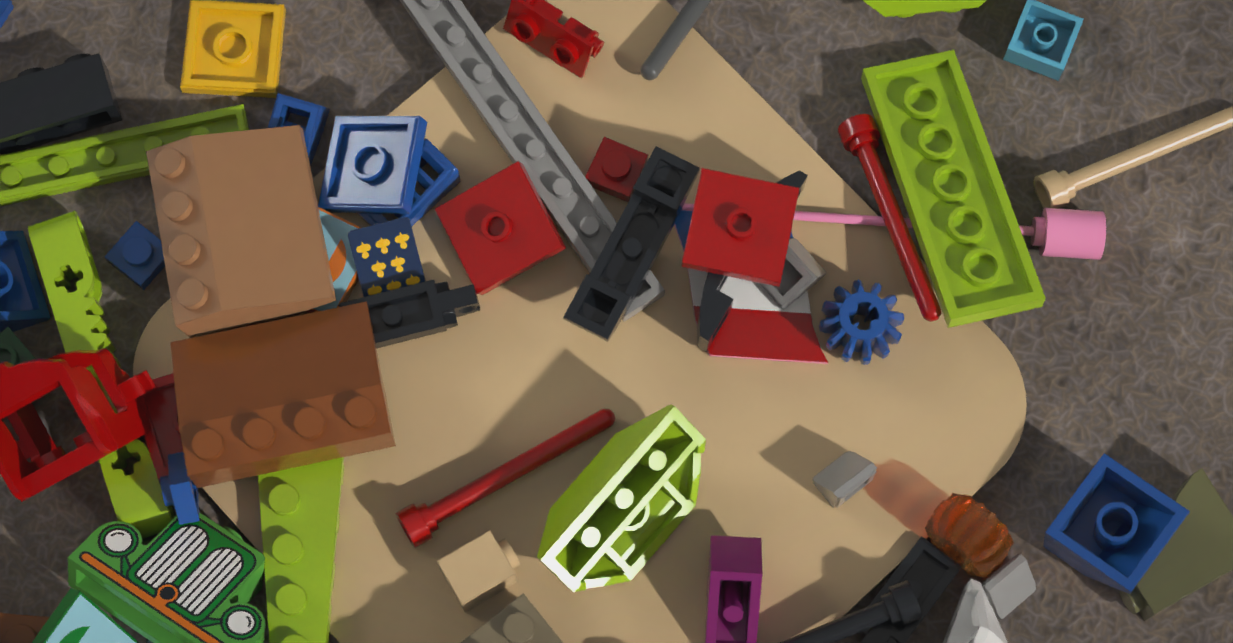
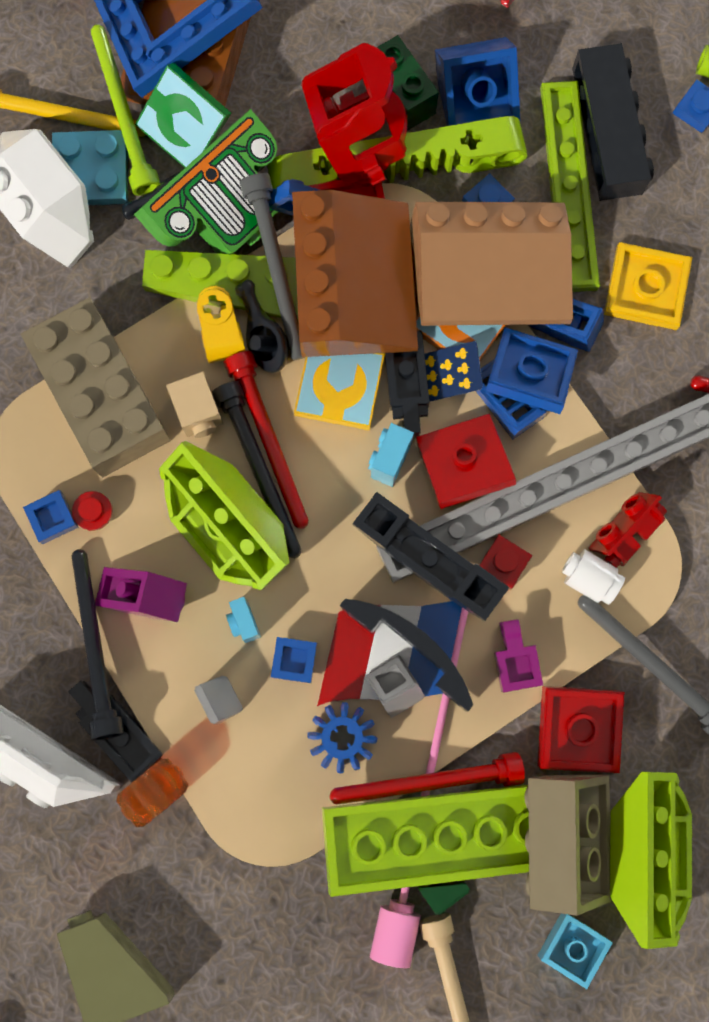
camera: 100 degrees right, 5 degrees up
(186, 528) = (257, 191): none -> dark grey piece
(366, 558) = (219, 331): none -> yellow piece
(370, 501) = (263, 333): none -> black piece
(428, 396) = (340, 389): none -> tile
(466, 527) = (230, 399): none -> black piece
(507, 315) = (394, 447): none -> medium azure piece
(619, 64) = (592, 577): none -> white brick
(736, 136) = (516, 665): none -> magenta plate
(740, 227) = (429, 645): red plate -> none
(743, 462) = (242, 620): none -> medium azure plate
(780, 394) = (294, 660): none -> blue plate
(797, 61) = (580, 729): none -> red tile
(930, 54) = (568, 843): none -> dark tan slope
(1009, 586) = (111, 818): light grey slope -> none
(1018, 184) = (443, 895): none -> dark green slope
(1114, 526) = (132, 917): blue slope -> none

